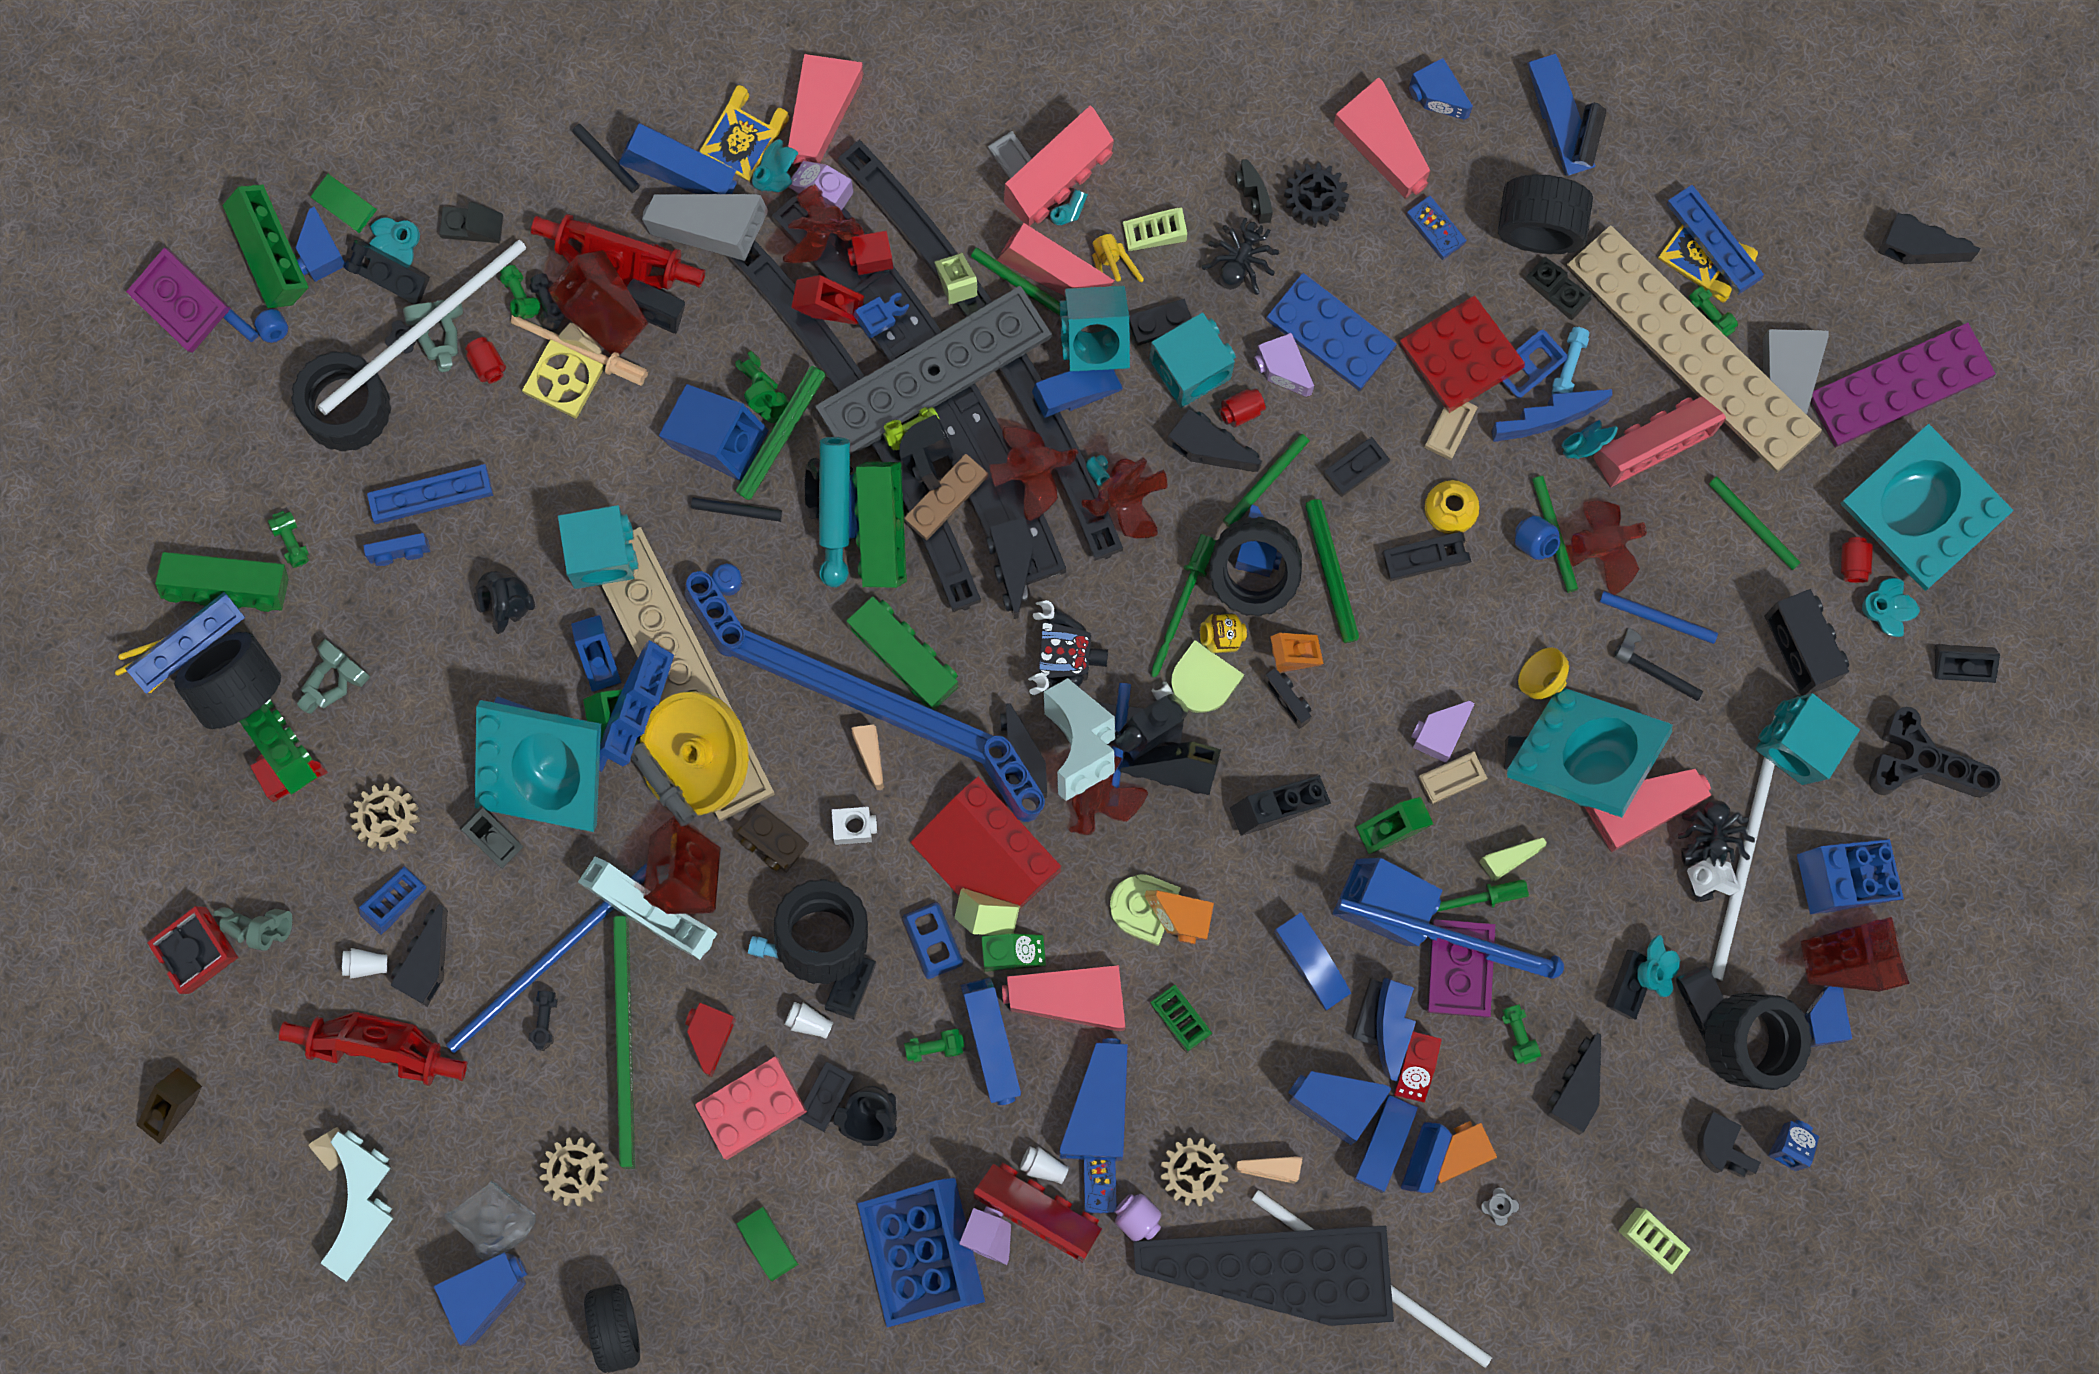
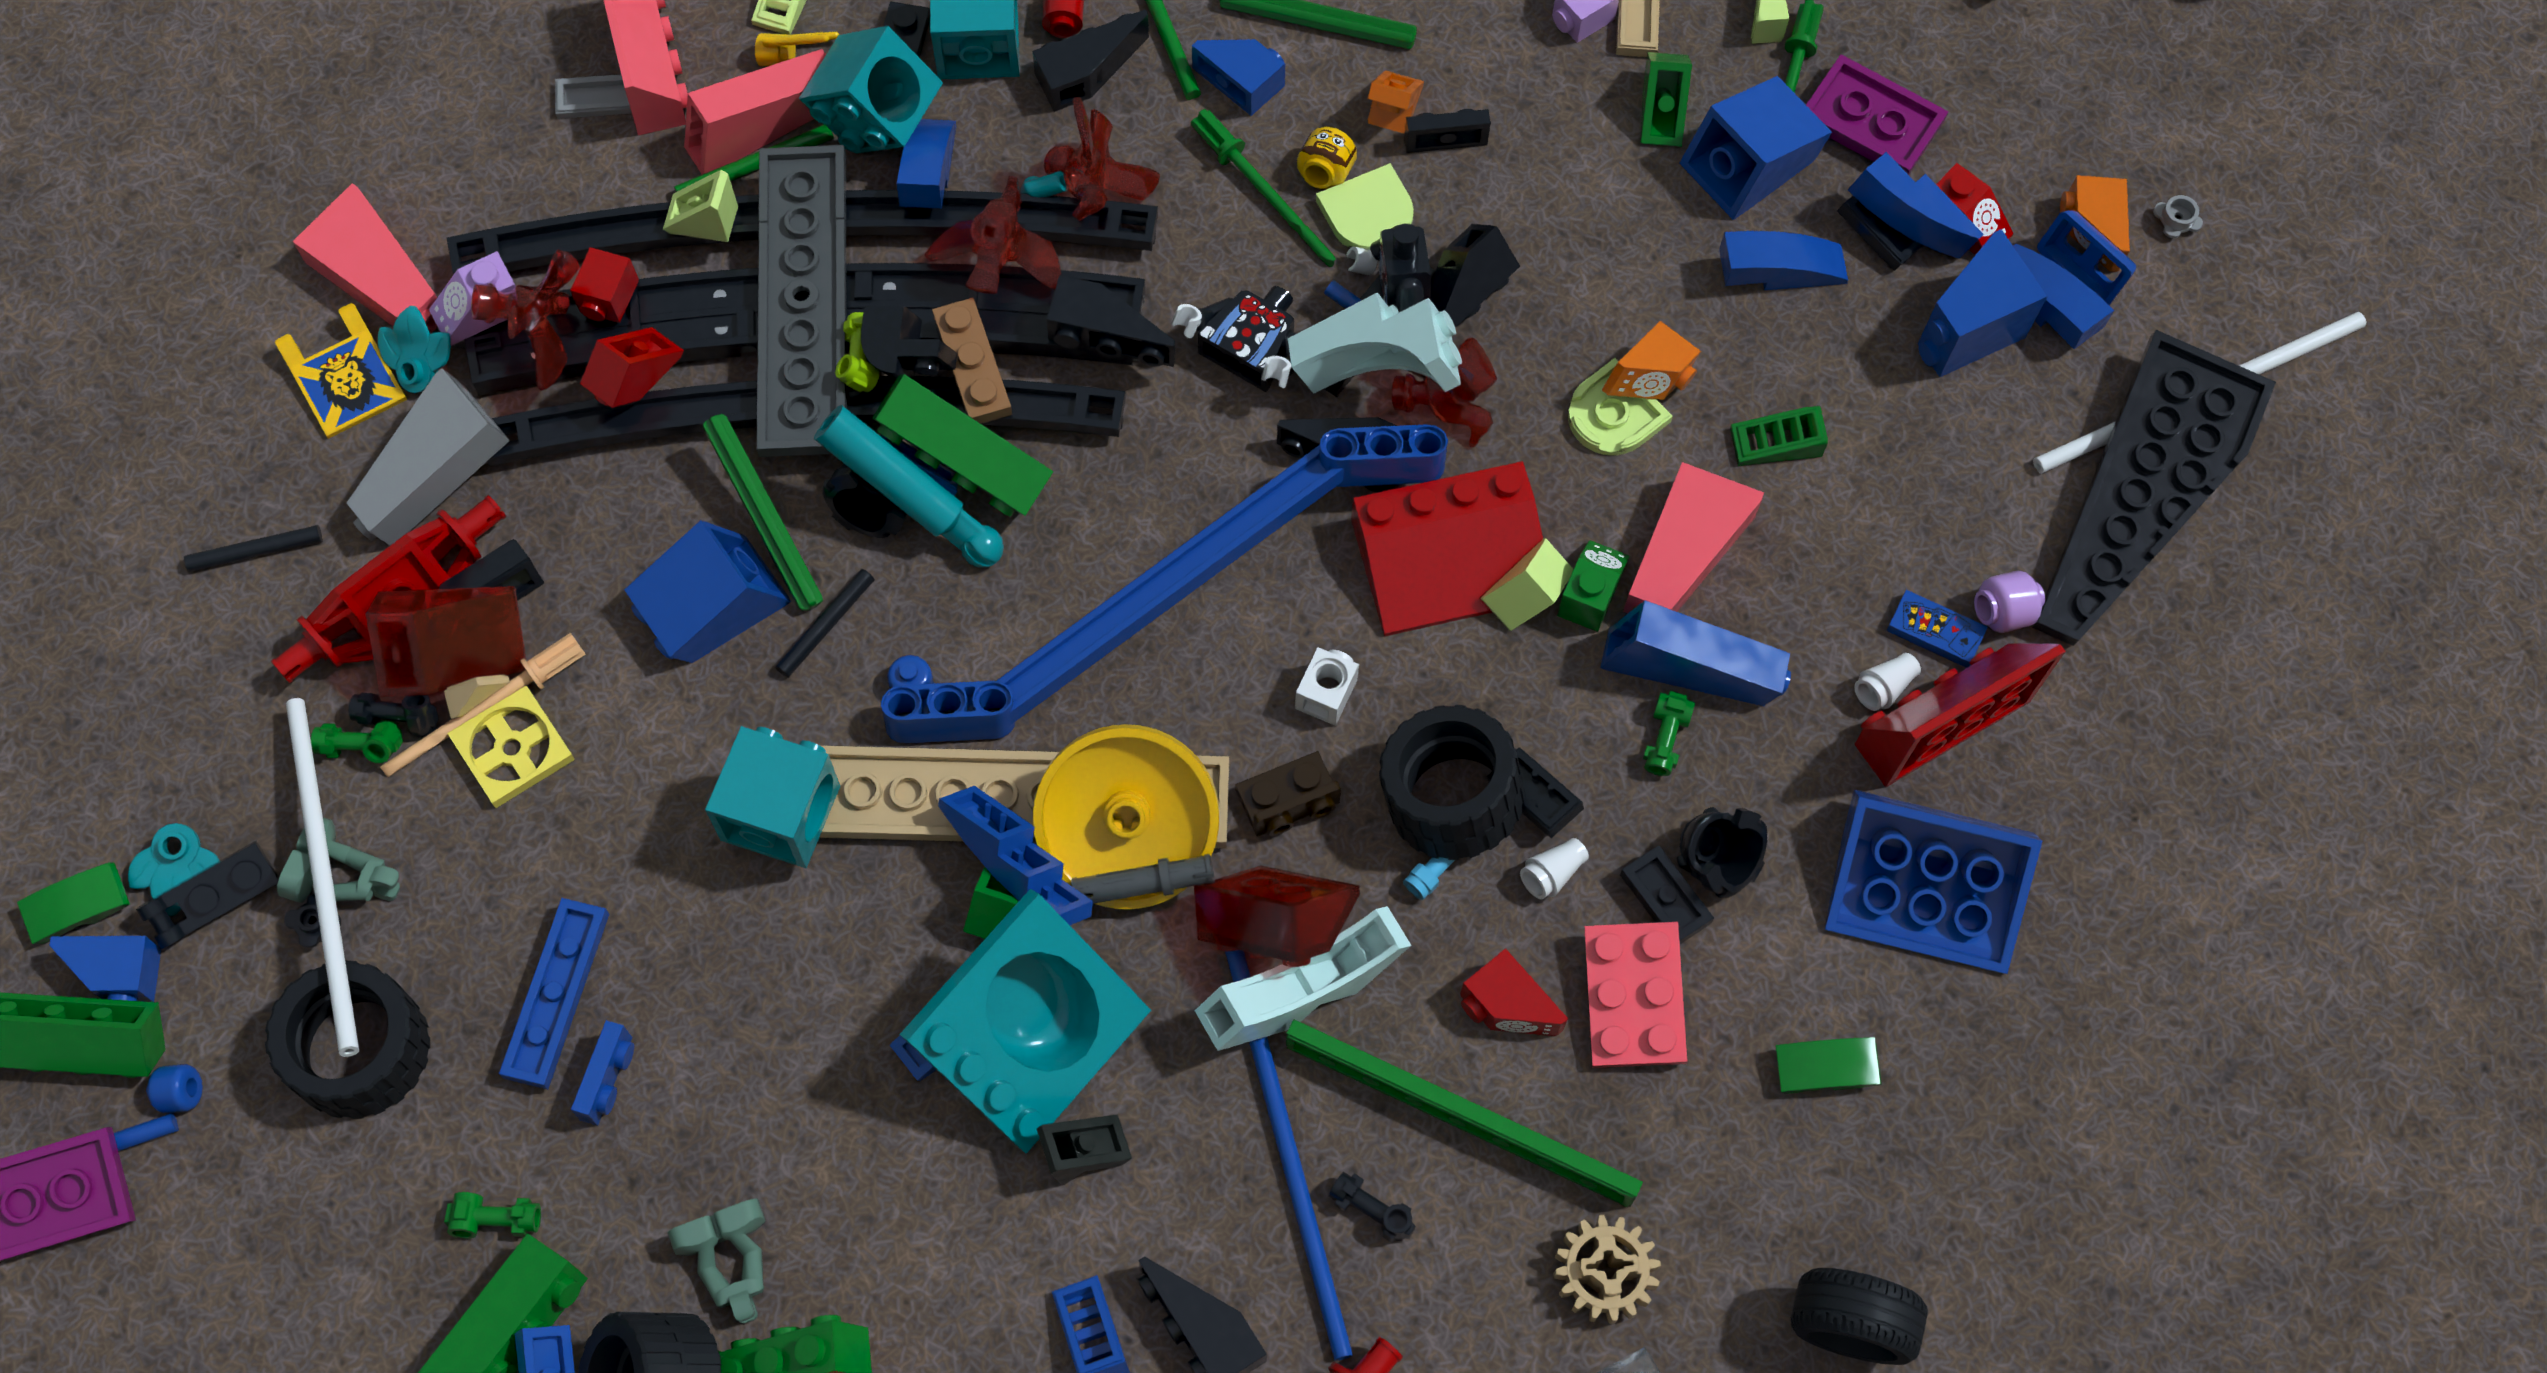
camera: 60 degrees left, 10 degrees down
(391, 806) = (986, 1265): tan gear -> none
(471, 224) = (225, 752): pearl dark grey slope -> none
(485, 360) = (419, 828): red brick -> none
(508, 595) = (765, 953): black helmet -> none
(595, 653) = (908, 885): blue slope -> none
(676, 163) = (317, 463): blue slope -> none
(762, 394) = (699, 502): green piece -> none
(868, 746) = (1241, 617): light nougat slope -> none
(877, 316) = (690, 319): blue plate -> none
(902, 653) = (1137, 514): green brick -> none
(922, 942) = (1524, 683): blue piece -> none
(988, 1235) = (1957, 774): lavender slope -> none
(1071, 211) = (699, 67): teal arm -> none
(1099, 1112) = (1846, 575): blue slope -> none
(1192, 1158) = (1960, 508): tan gear -> none
(1244, 600) = (1310, 45): black tyre -> none
(1279, 805) = (1572, 205): black slope -> none
(1280, 1169) = (2023, 418): light nougat slope -> none
(1494, 952) = (1918, 29): blue bar -> none
(1525, 1050) = (2004, 99): green bar -> none
(1581, 1092) = (2084, 68): black slope -> none
(1633, 1224) = (2270, 98): yellowish green slope -> none

